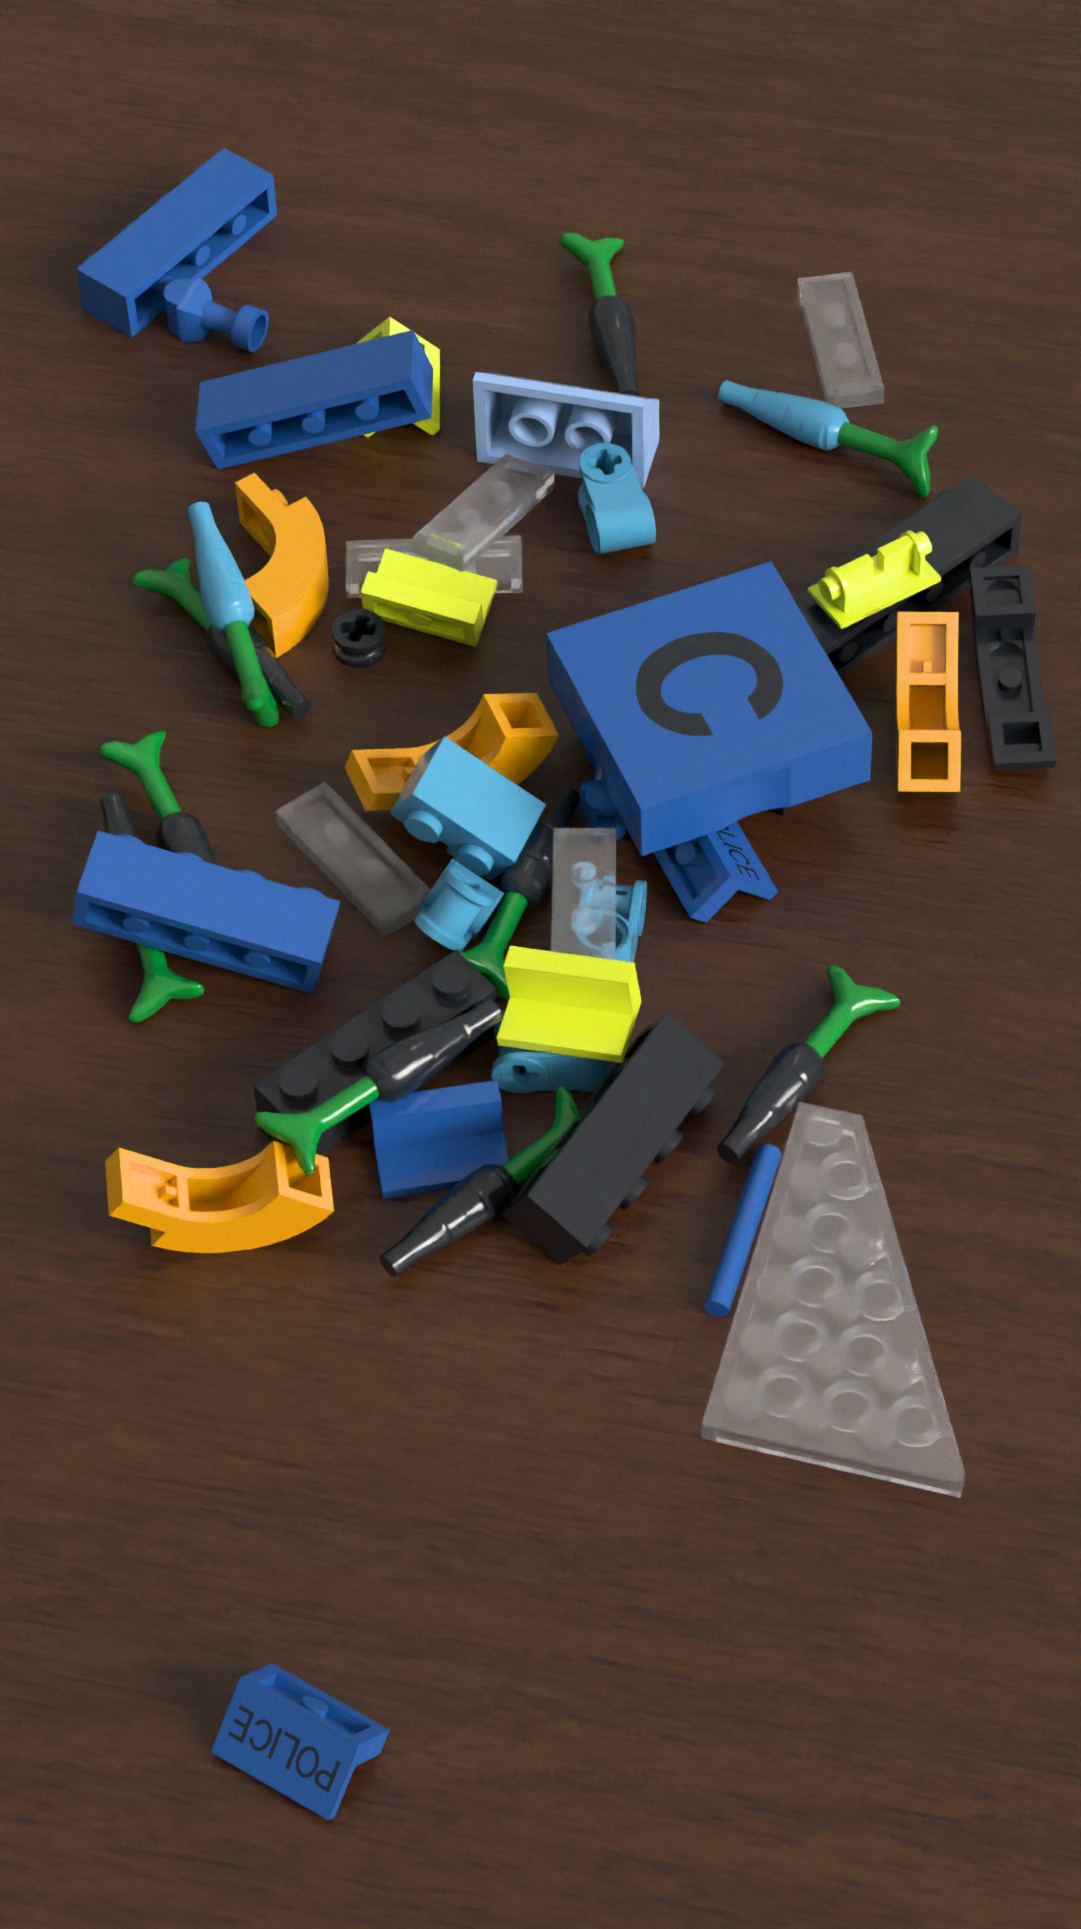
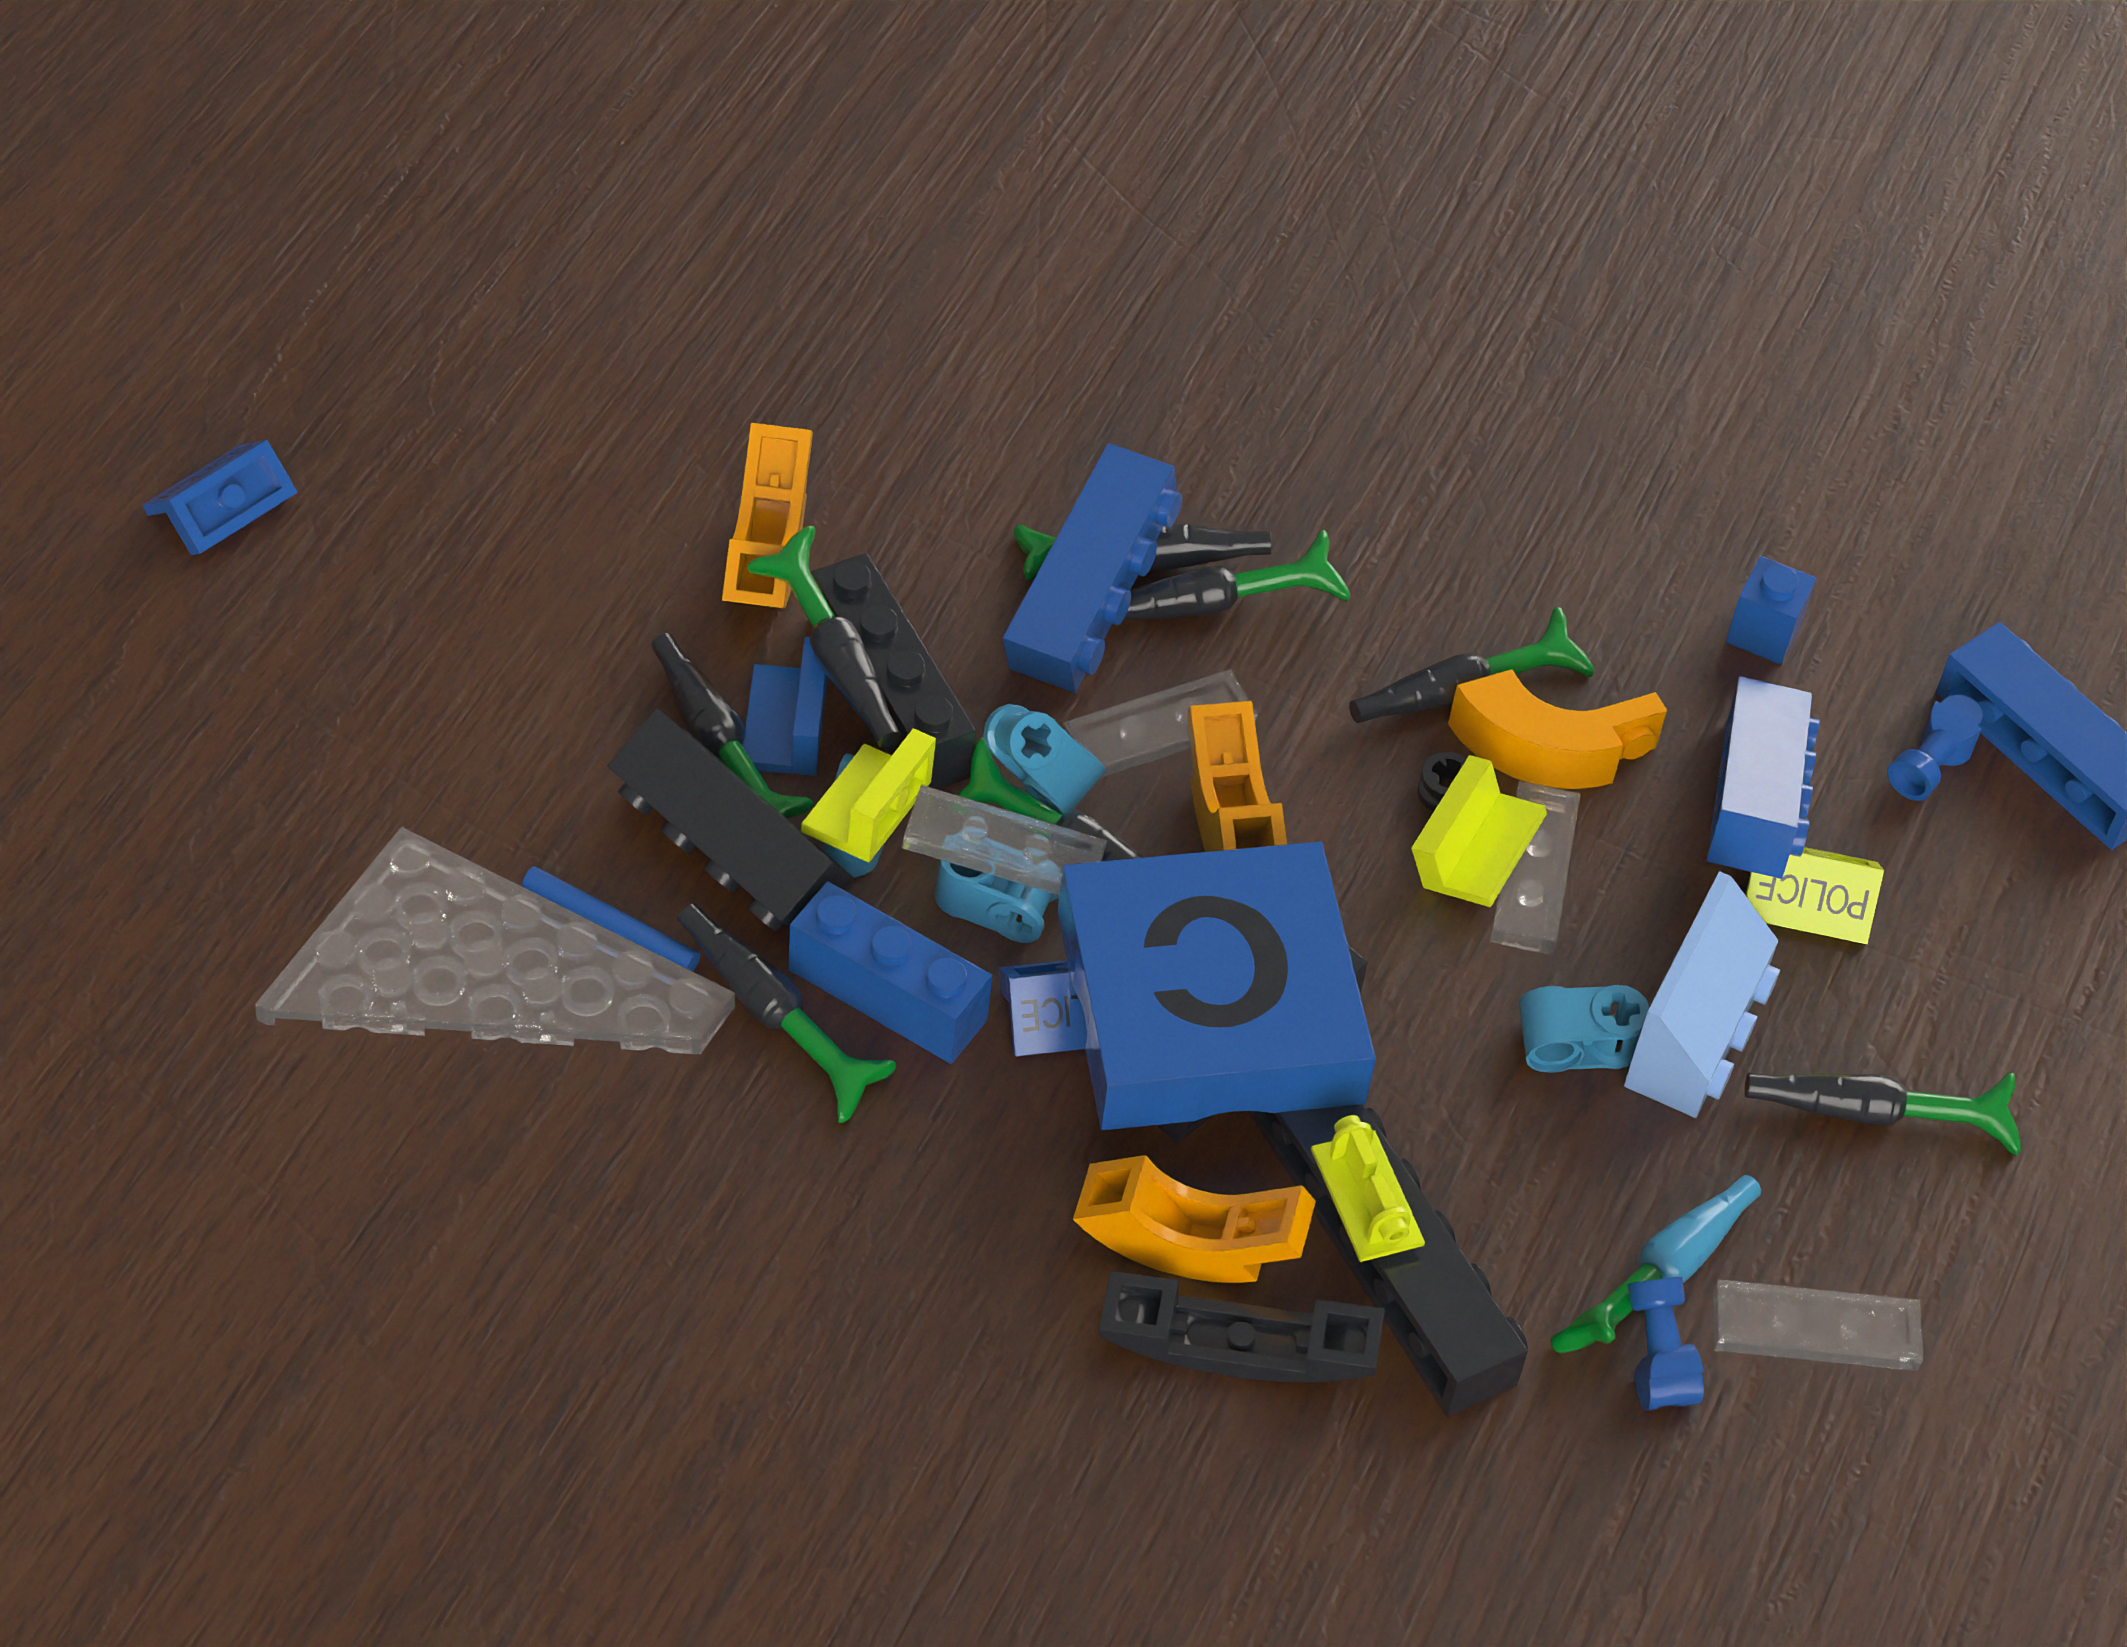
camera: 95 degrees right, 0 degrees up
(91, 432) = (1770, 610): none -> blue brick
(230, 611) = (1472, 652): dark azure piece -> none
(467, 808) = (1154, 776): dark azure piece -> none
(483, 513) = (1590, 910): clear tile -> none
(744, 975) = (889, 972): none -> blue brick
(925, 405) = (1669, 1370): none -> blue leg

